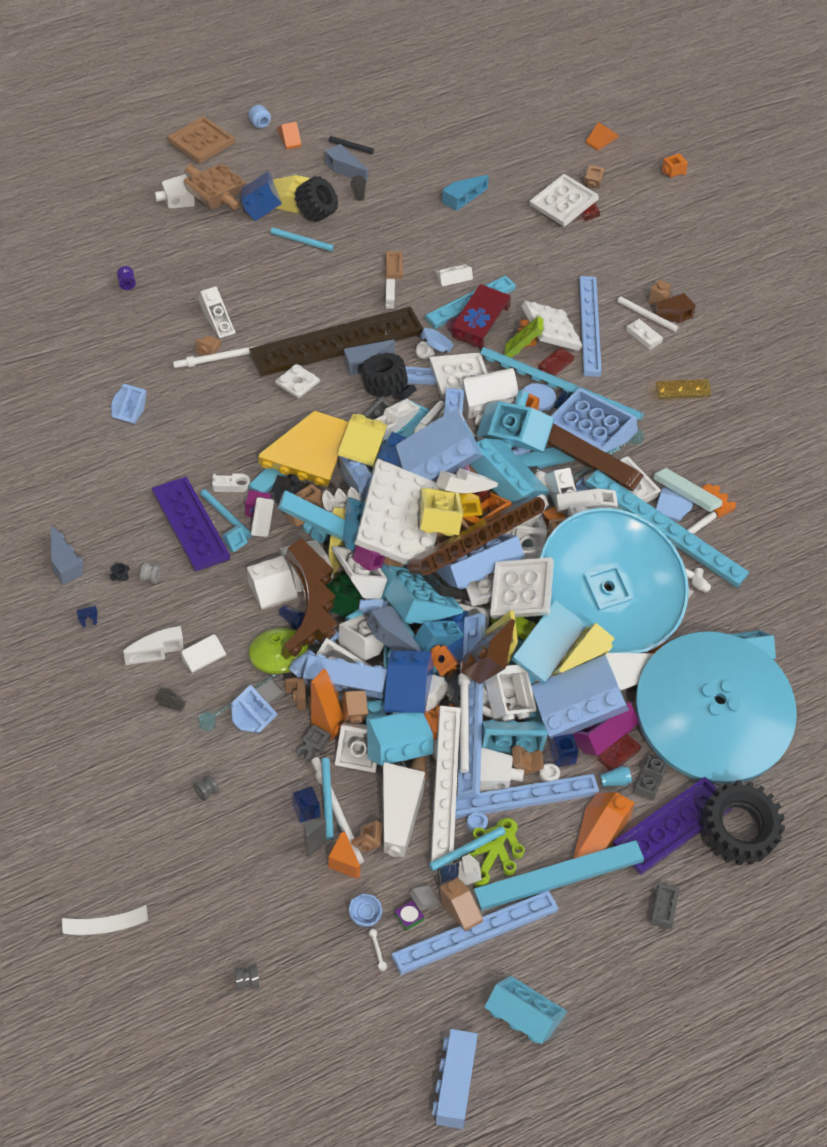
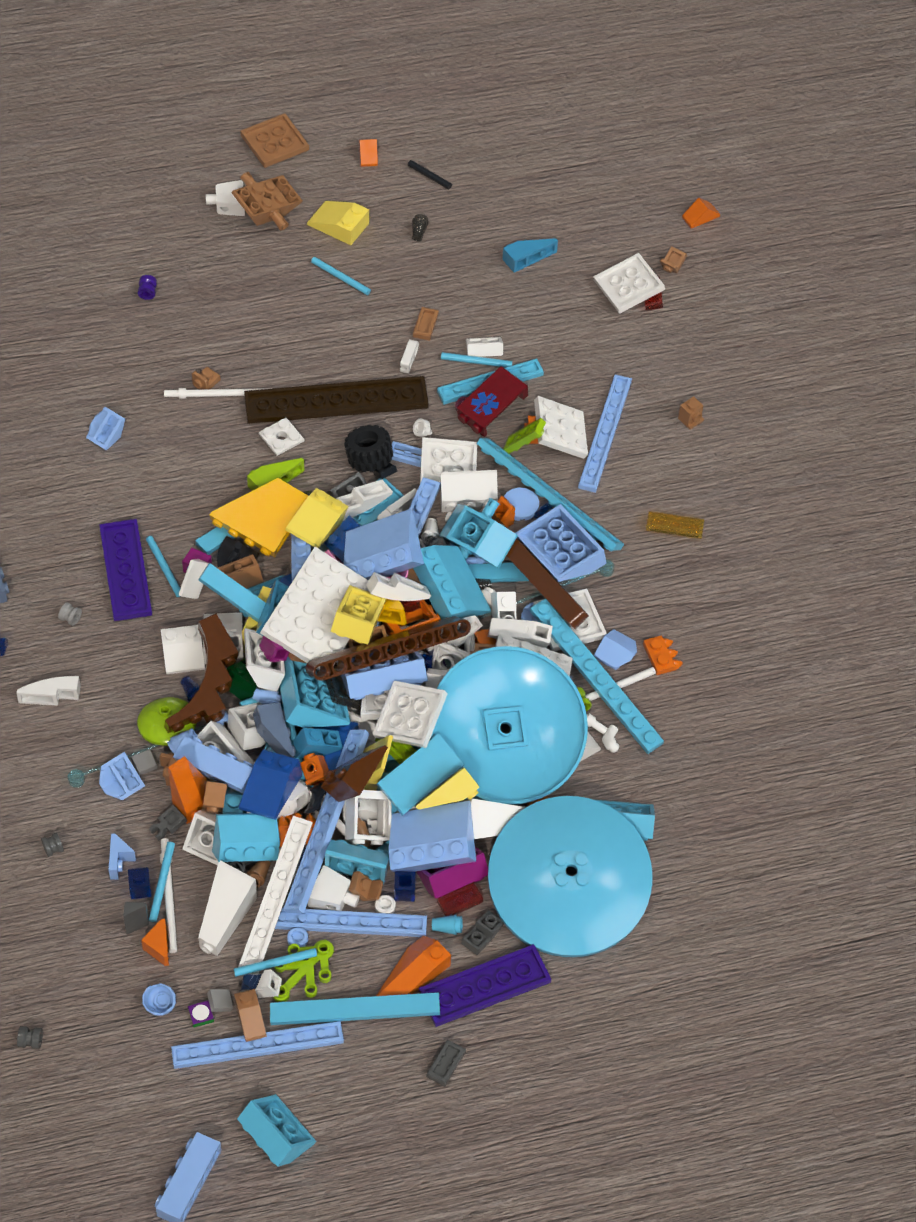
camera: 15 degrees right, 5 degrees up
(119, 572) = (41, 602): black plate -> none
(169, 699) = (47, 748): clear smoke cone -> none
(202, 653) = (93, 708): white slope -> none
(216, 312) = (224, 344): white slope -> none
(229, 483) = (177, 534): white piece -> none
(235, 538) = (162, 595): medium azure tile -> none
(259, 116) = (343, 124): light blue head -> none
(260, 196) = (311, 219): blue slope -> none
(276, 781) = (118, 853): none -> light blue slope
(299, 412) = (283, 470): none -> lime slope
(316, 199) = (376, 231): black tyre -> none
(339, 500) = (267, 579): white plate -> none
(344, 163) = (412, 195): sand blue slope -> none
(356, 356) = (349, 420): sand blue slope -> none
(369, 837) = (188, 930): medium nougat bracket -> none
(382, 966) = (160, 1056): white hinge -> none
(437, 340) = (437, 419): light blue tile -> none
(452, 286) = (476, 360): none -> medium azure bar
(464, 682) = (325, 797): white bar -> none
(556, 362) = (554, 467): clear red plate -> none
(644, 334) = (659, 454): white plate -> none
(648, 314) = (663, 424): white bar -> none
(674, 165) = (765, 263): orange brick -> none
(676, 308) = (701, 432): reddish brown slope -> none
(688, 489) = (634, 638): light aqua tile -> none
(758, 805) = (564, 976): black tyre -> none

